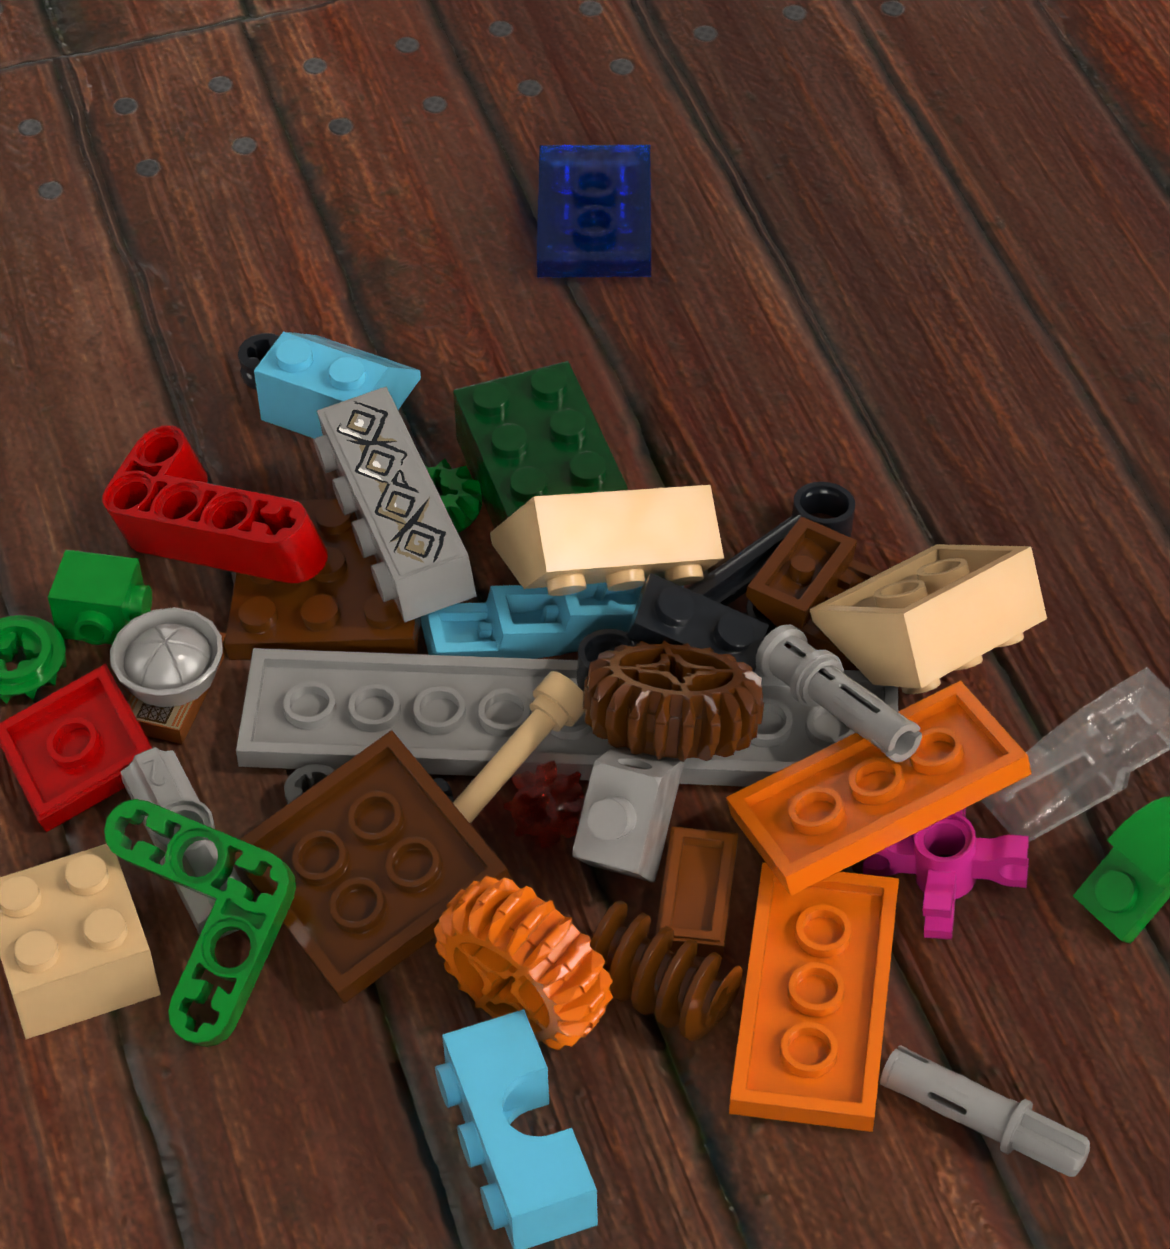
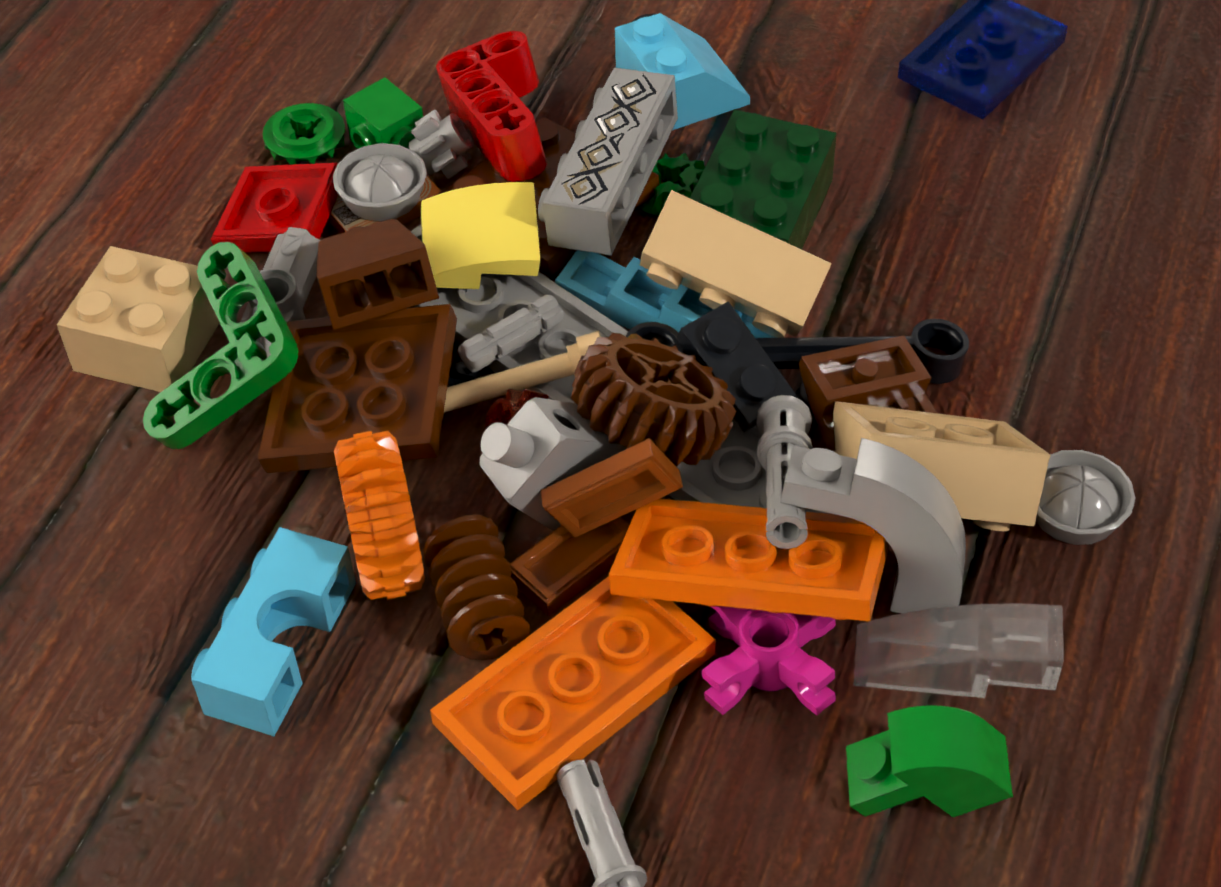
camera: 40 degrees right, 0 degrees up
(185, 583) = (442, 143): none -> light grey gear
(284, 743) = (373, 272): none -> reddish brown torso
(332, 650) = (481, 233): none -> light yellow slope
(459, 725) = (510, 333): none -> light grey axle
(710, 803) = (611, 488): none -> dark orange tile
(958, 657) = (898, 502): none -> light grey arch
(1067, 568) = (1083, 497): none -> light grey hat

